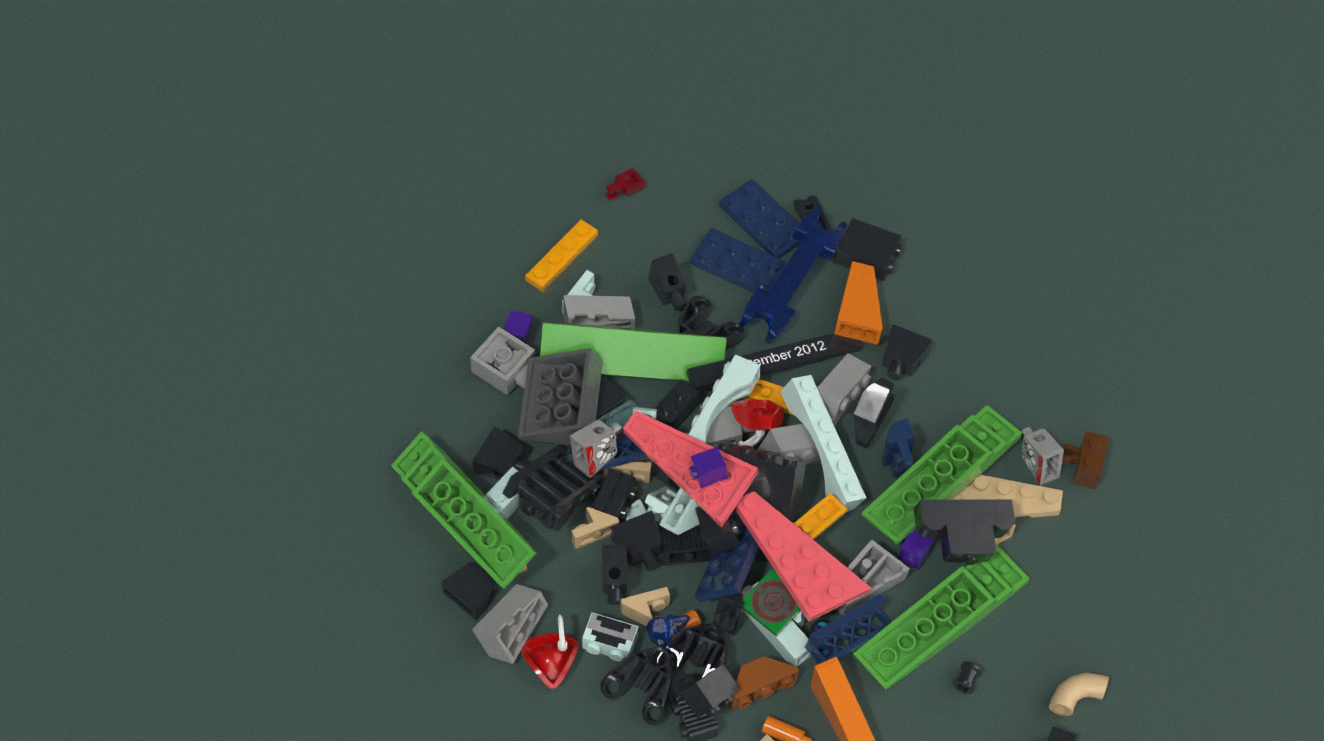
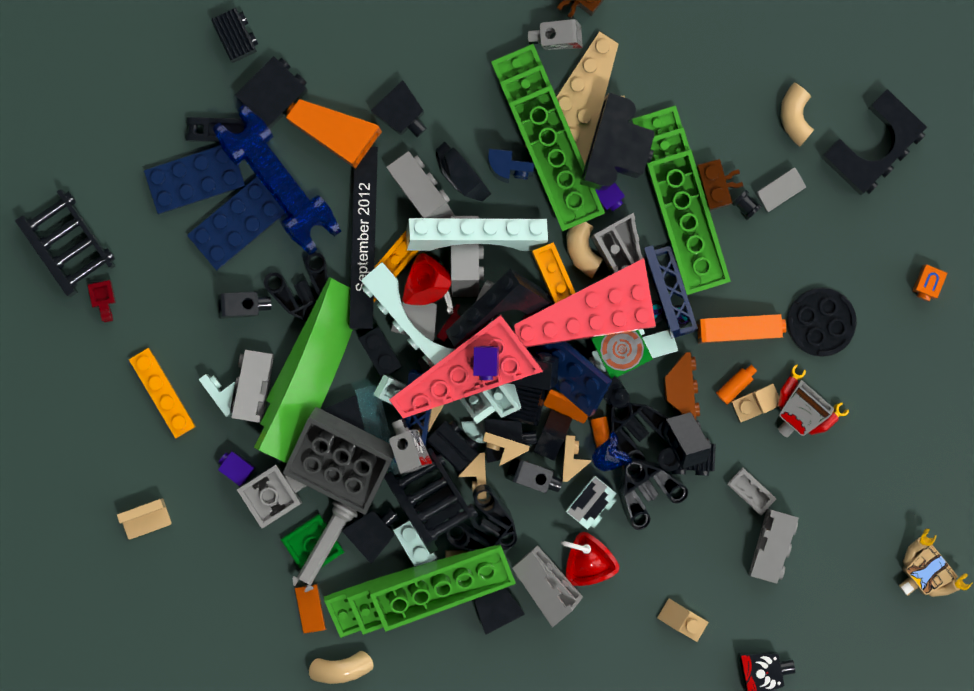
camera: 65 degrees left, 30 degrees up
(360, 473) = (341, 670): none -> tan cylinder
(404, 435) = (310, 609): none -> orange slope
(443, 275) = (145, 518): none -> tan panel
(470, 416) = (303, 540): none -> green tile
(478, 420) = (341, 515): none -> light grey piece
(551, 552) = (496, 510): none -> black connector
(631, 533) = (511, 448): none -> tan slope
(650, 126) = (43, 244): none -> black fence
(660, 577) = (552, 435): none -> black slope
(693, 577) = (561, 404): none -> orange slope
(852, 541) = (580, 251): none -> tan cylinder
(903, 206) = (234, 35): none -> black brick
(973, 640) = (715, 184): none -> reddish brown brick
(998, 705) = (781, 190): none -> light grey slope

